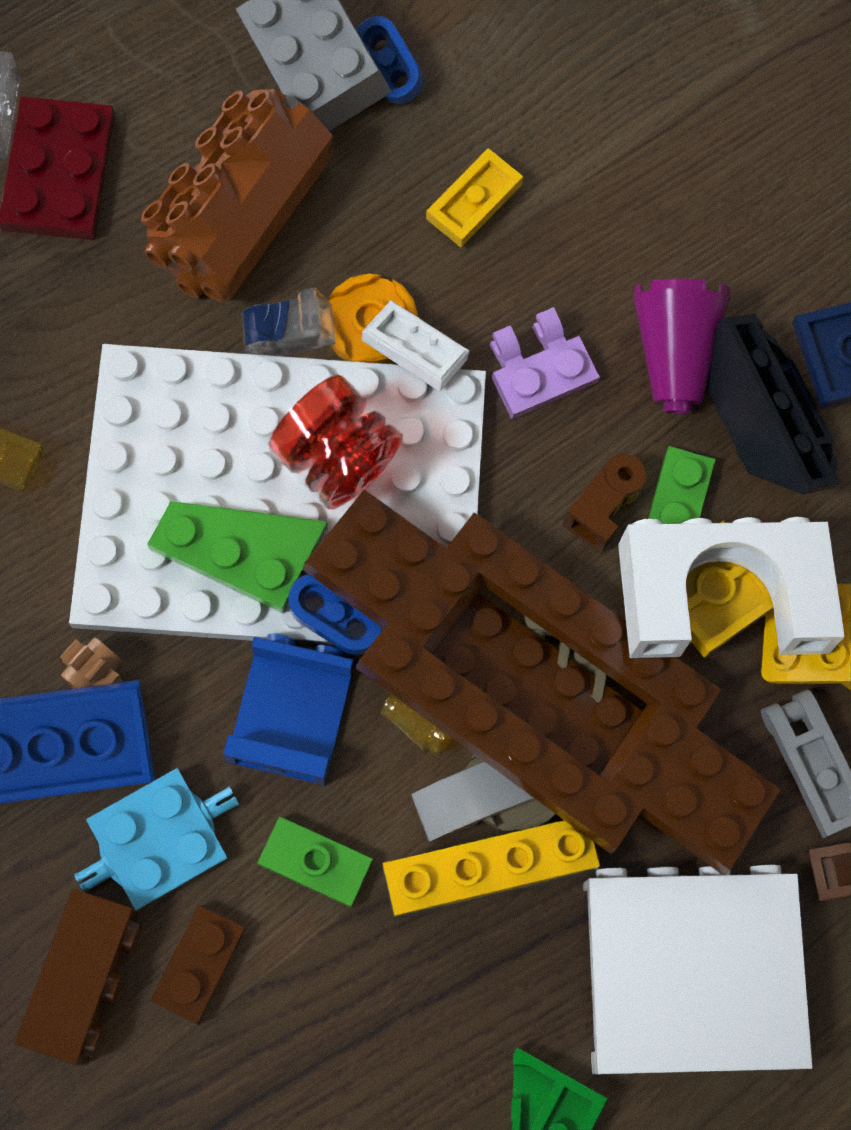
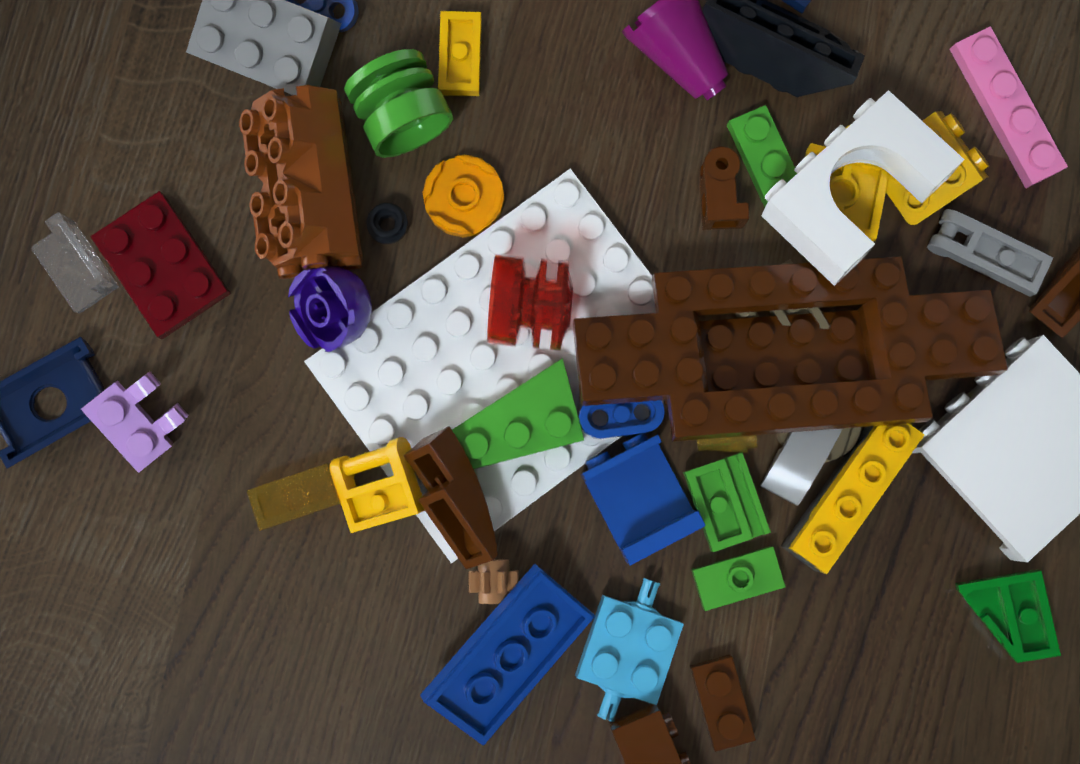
camera: 40 degrees left, 10 degrees up
(64, 513) = (381, 499): none -> yellow plate
(121, 557) = (454, 497): none -> reddish brown slope
(166, 312) = (329, 307): none -> dark purple cylinder
(278, 276) = (382, 212): none -> black plate
(289, 325) = (417, 245): clear leg -> none
(365, 781) = (727, 502): none -> bright green plate
(378, 191) = (398, 102): none -> bright green wheel
(415, 345) = (513, 190): white plate -> none
(545, 376) = (610, 139): lavender plate -> none

